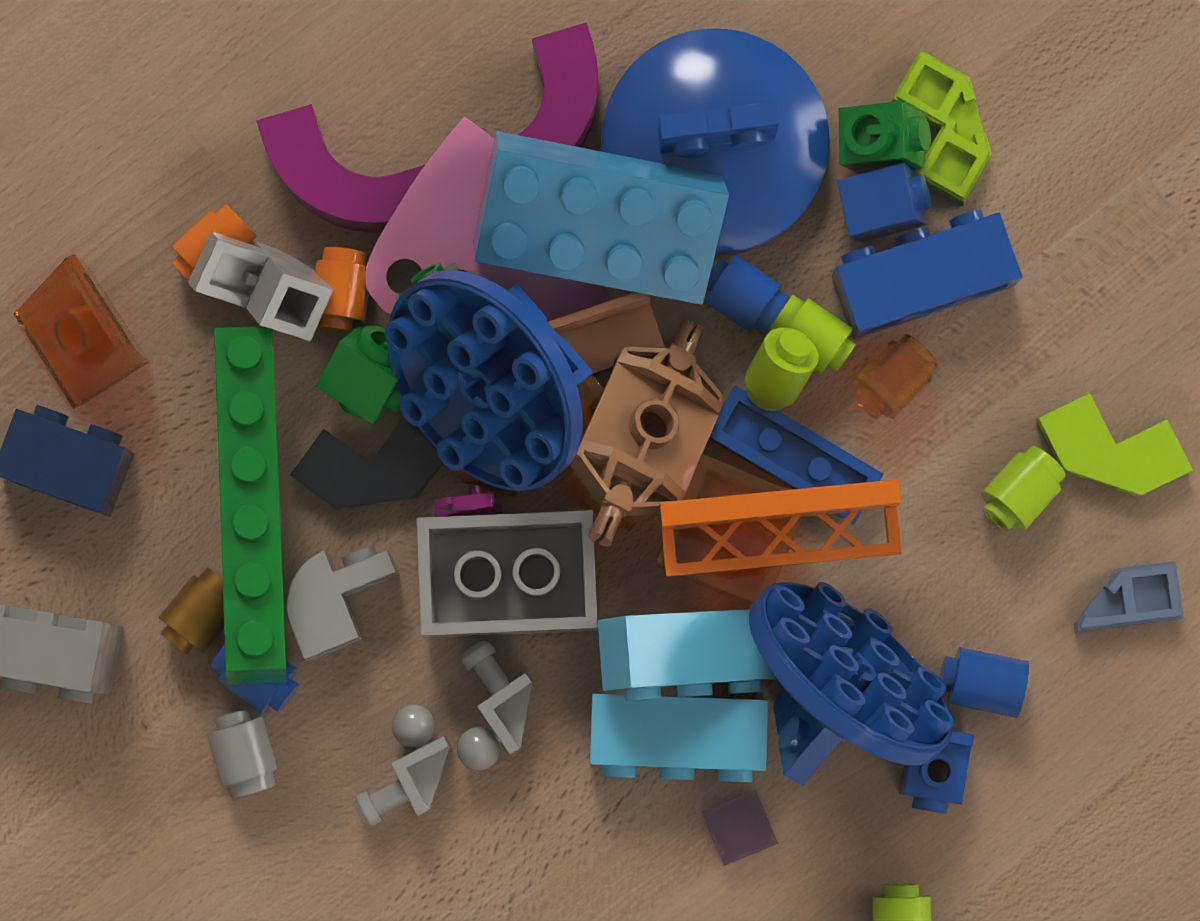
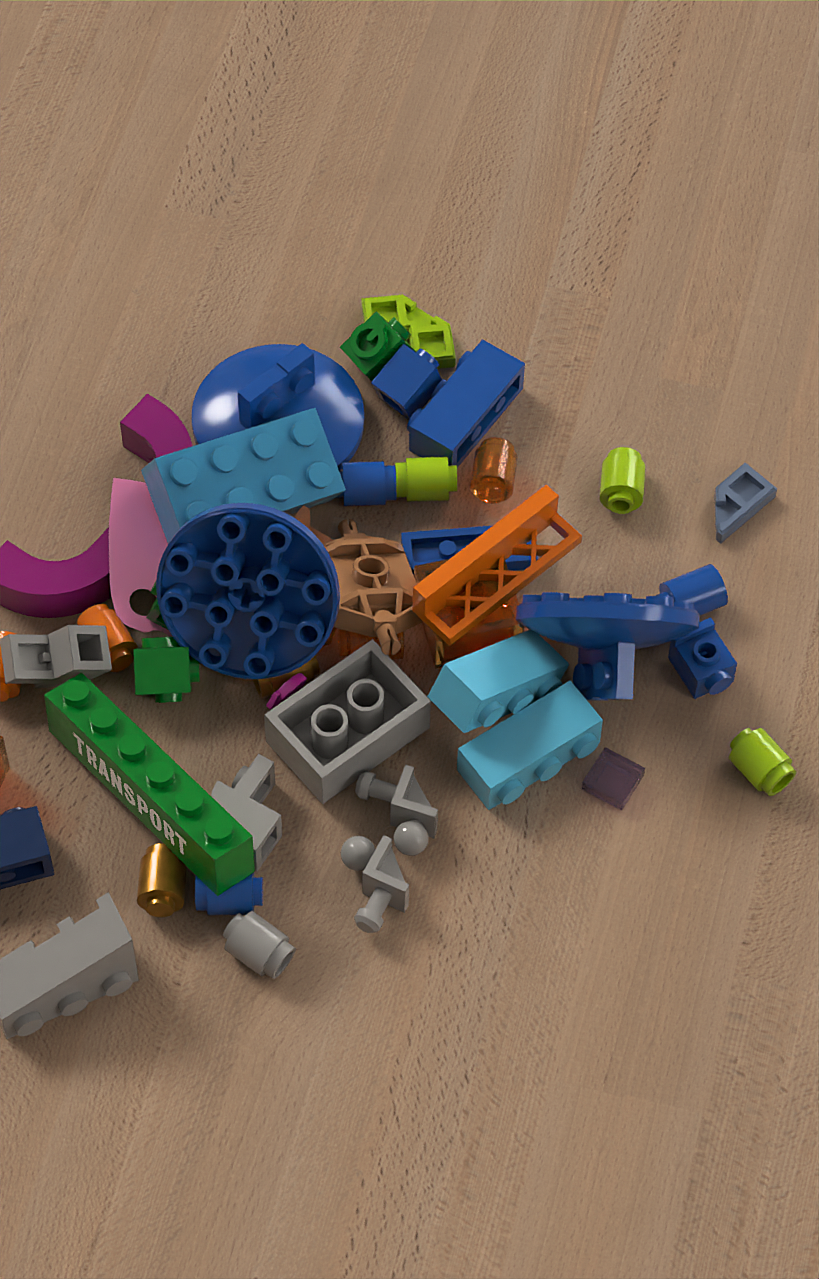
camera: 40 degrees left, 25 degrees down
(350, 481) = (226, 722): black tile -> none
(780, 368) = (422, 499): lime brick -> none
(1088, 450) = (675, 430): lime tile -> none

